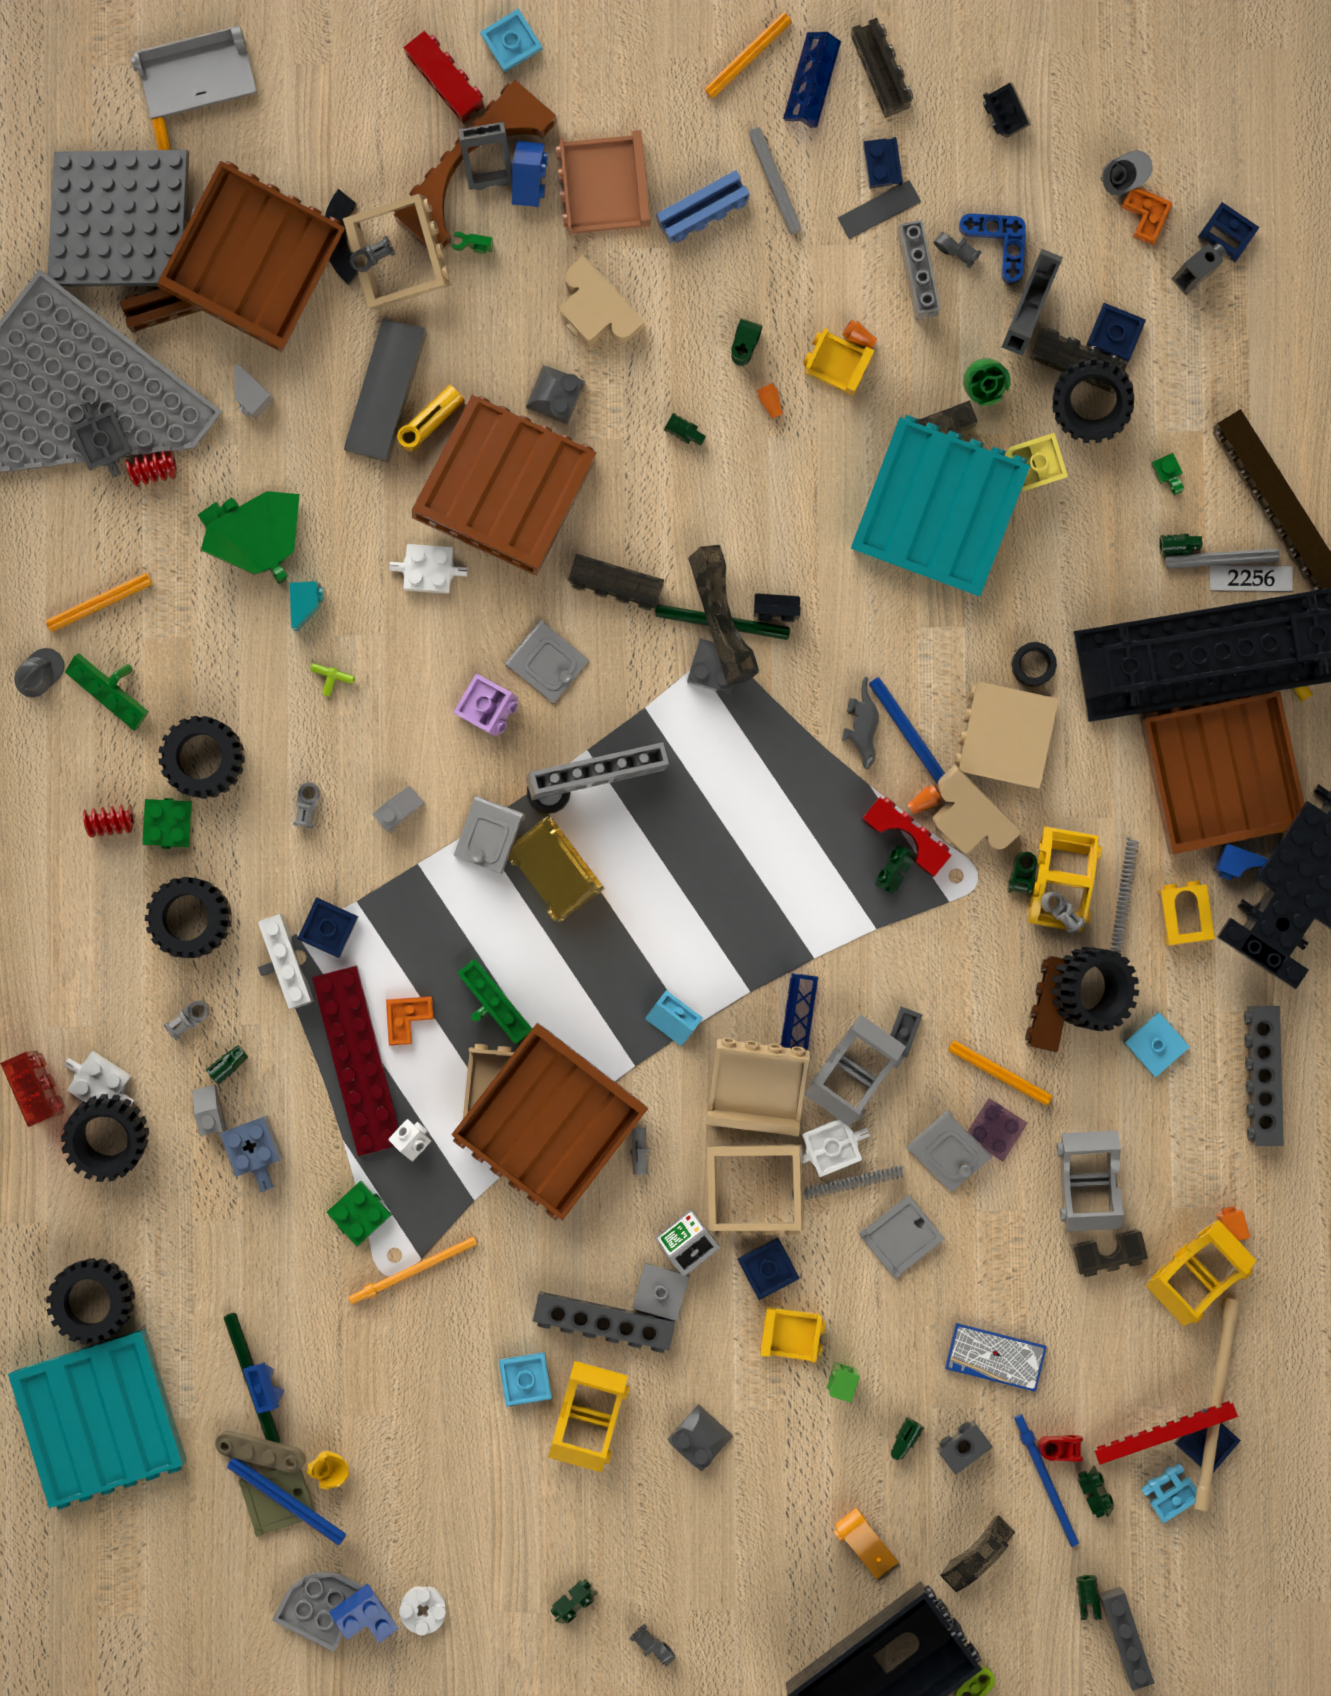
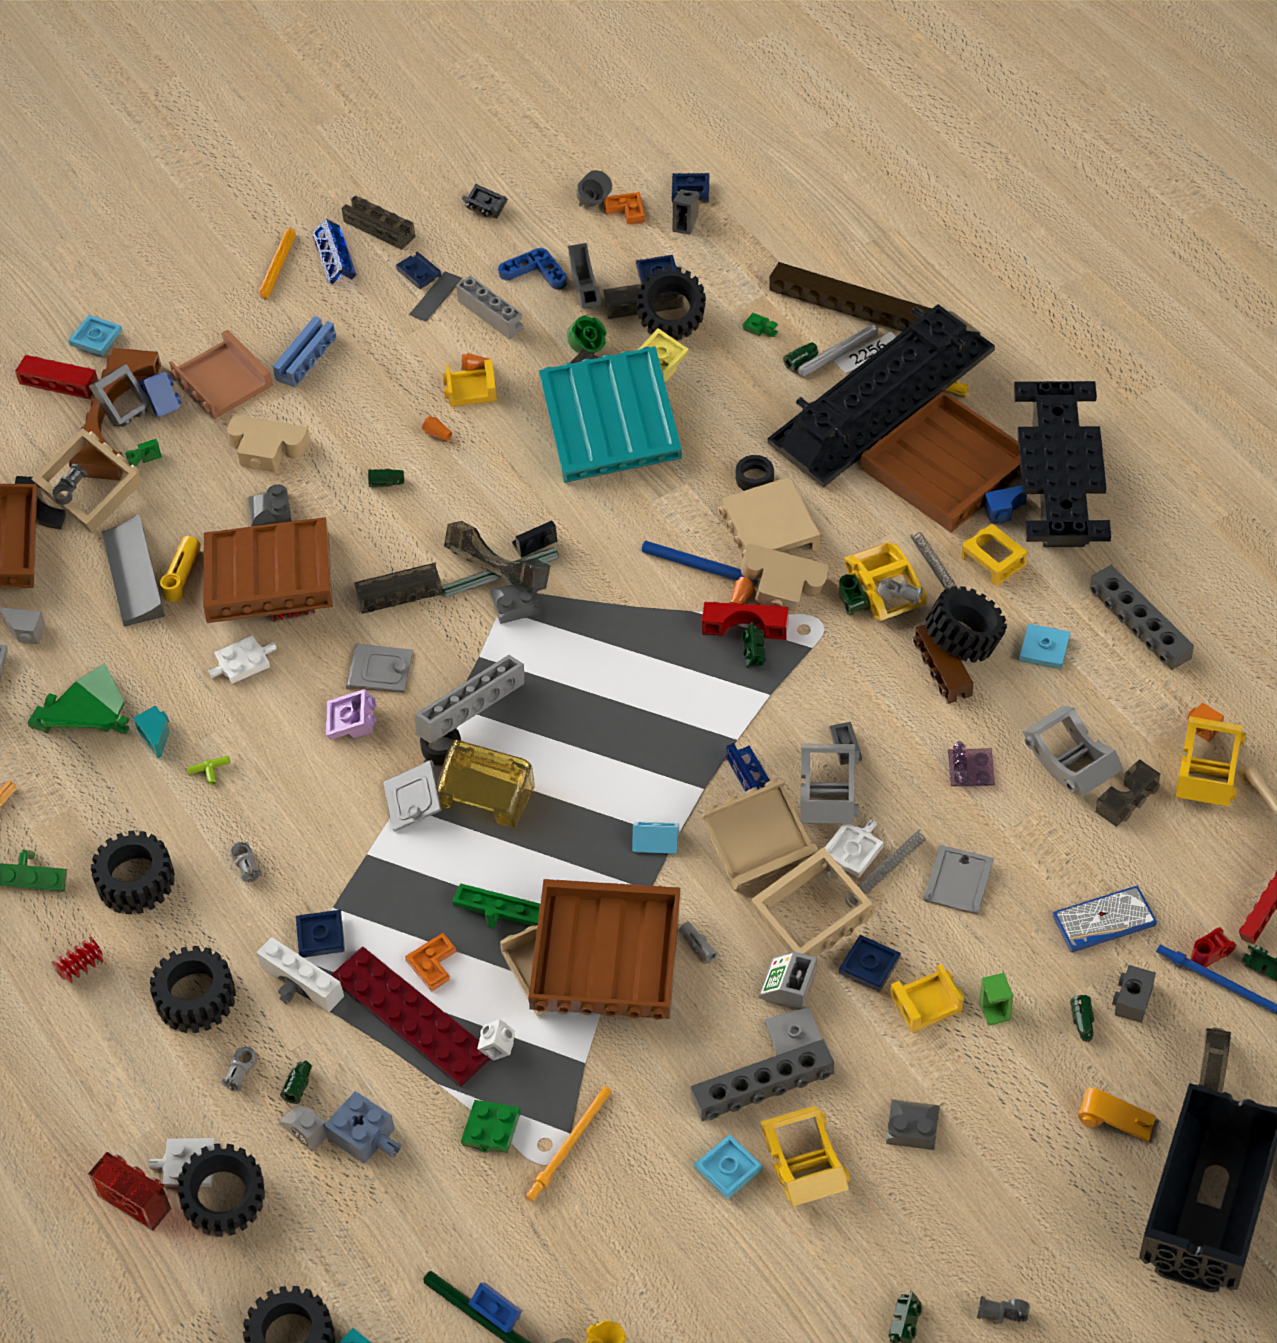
camera: 35 degrees left, 35 degrees down
(167, 823) = (131, 939): green plate -> none
(398, 809) = (323, 824): light grey slope -> none
(745, 339) = (392, 406): dark green piece -> none
(775, 180) = (348, 315): light grey axle -> none
(863, 725) = (657, 573): dark grey animal -> none
(945, 1148) = (942, 797): light grey container -> none
(962, 250) = (508, 284): dark grey connector -> none
(1000, 1073) = (942, 729): light orange axle -> none

